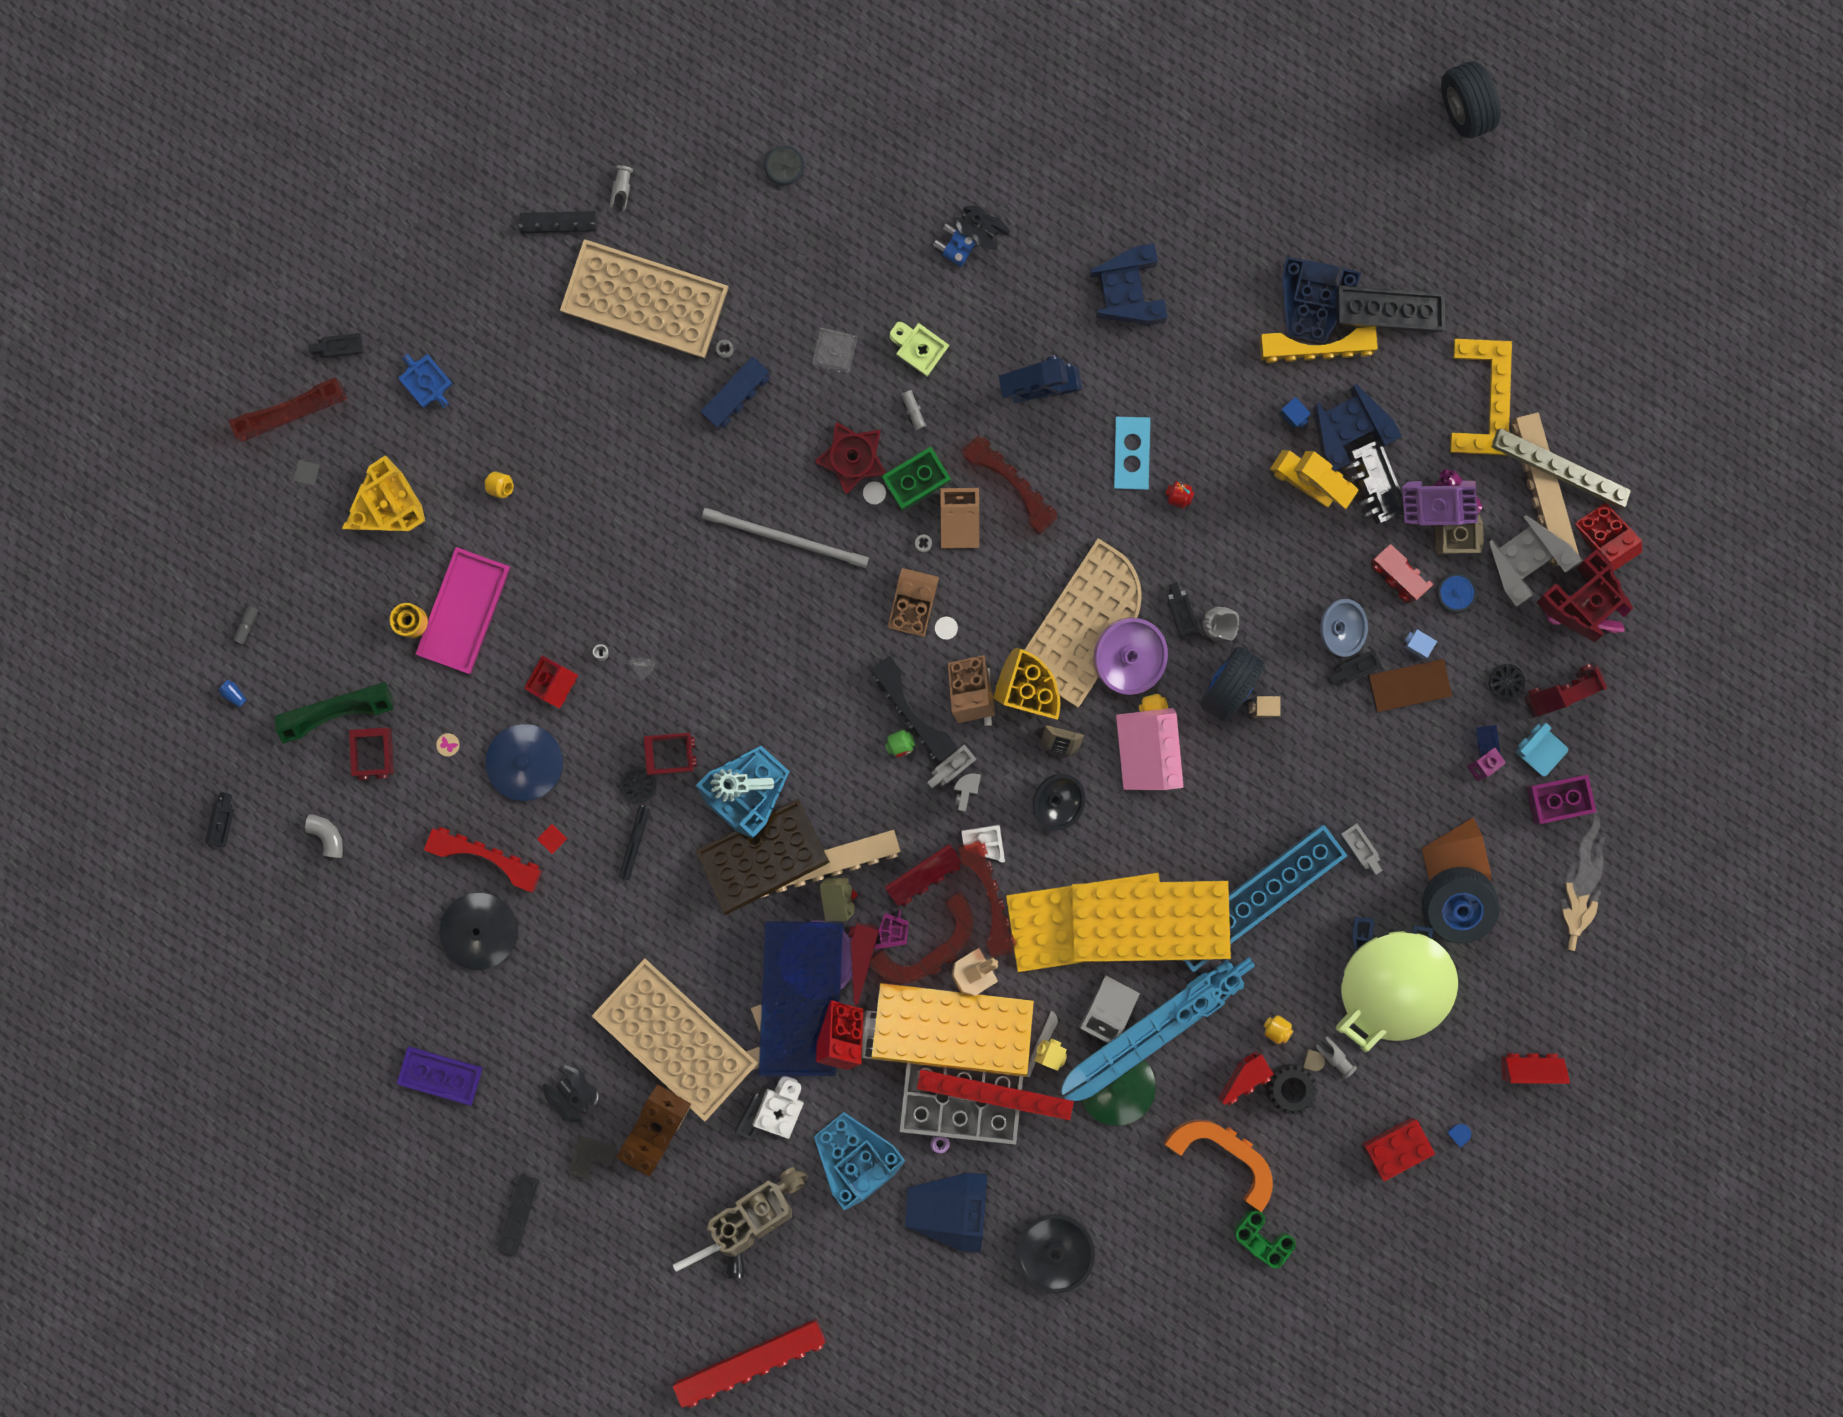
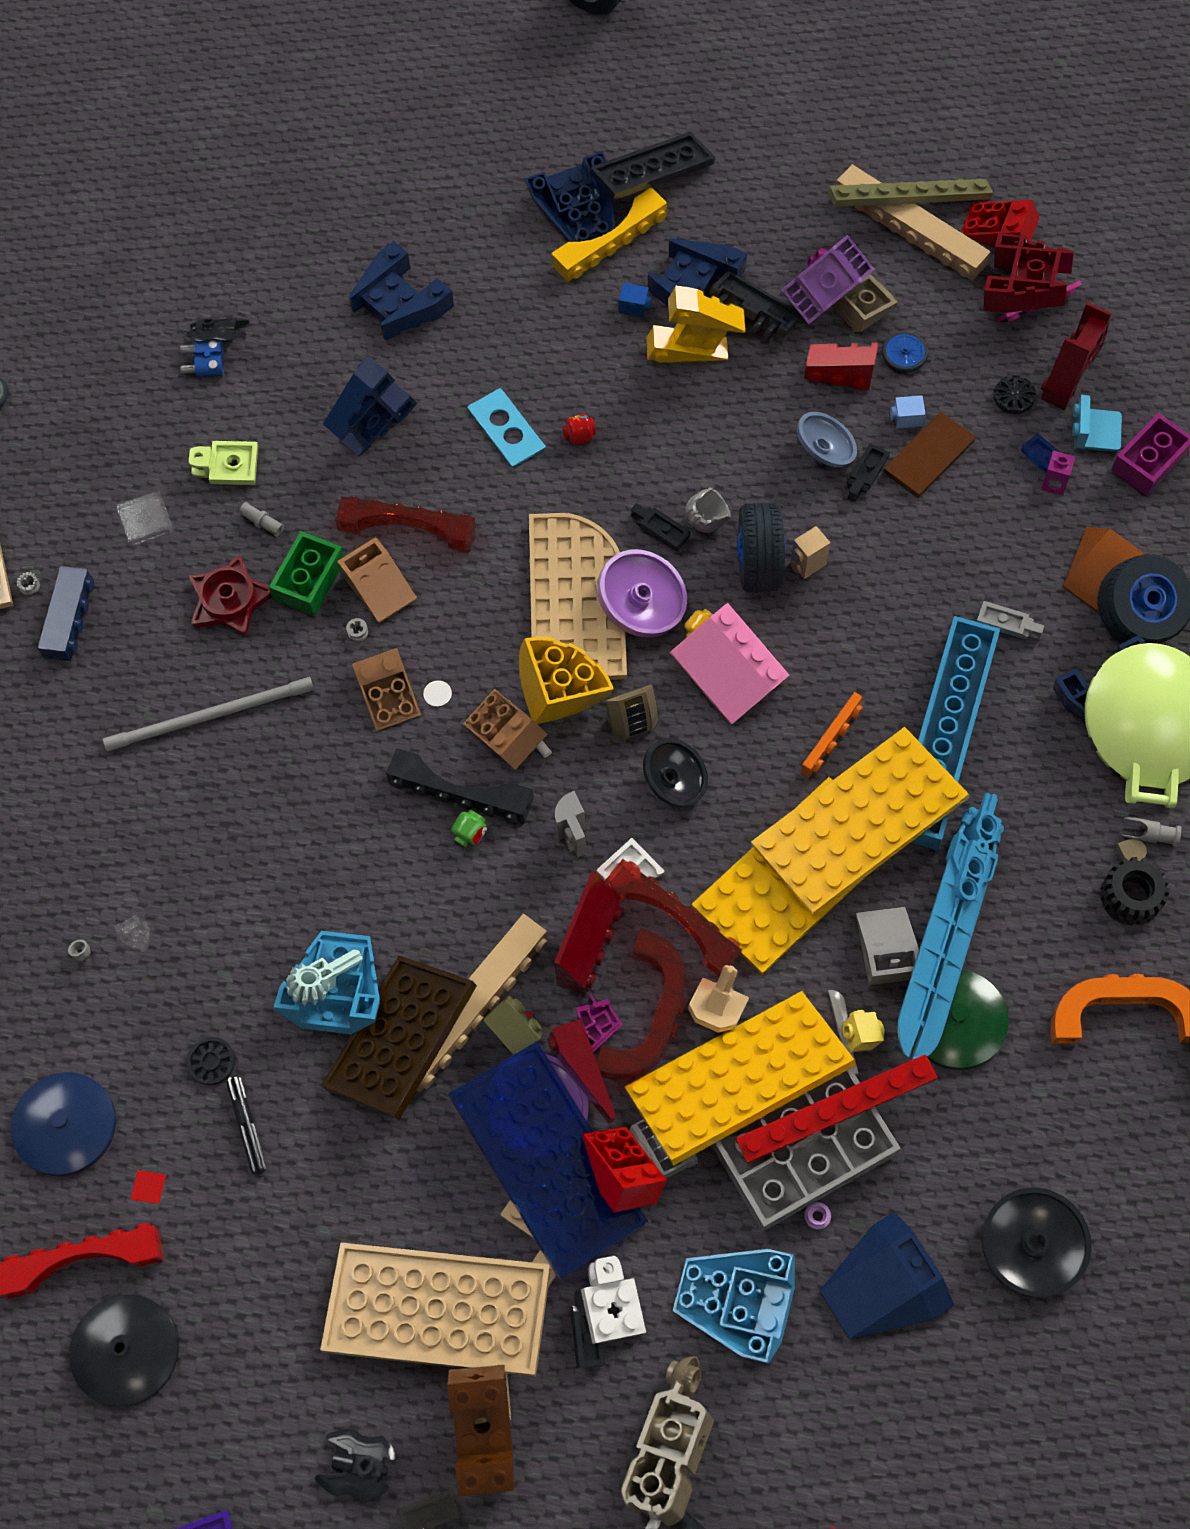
camera: 30 degrees left, 20 degrees down
(551, 682) = (41, 1015): red slope -> none
(649, 759) = (192, 1000): dark red window -> none
(874, 492) = (274, 618): white sticker -> none
(951, 766) = (539, 816): light grey hinge -> none
(1189, 844) = (827, 743): none -> orange plate
(1245, 1077) = (1080, 909): red slope -> none
(1278, 1029) = (1072, 844): yellow head -> none
(1499, 403) = (781, 150): yellow plate -> none
(1527, 554) = (942, 273): light grey wedge -> none

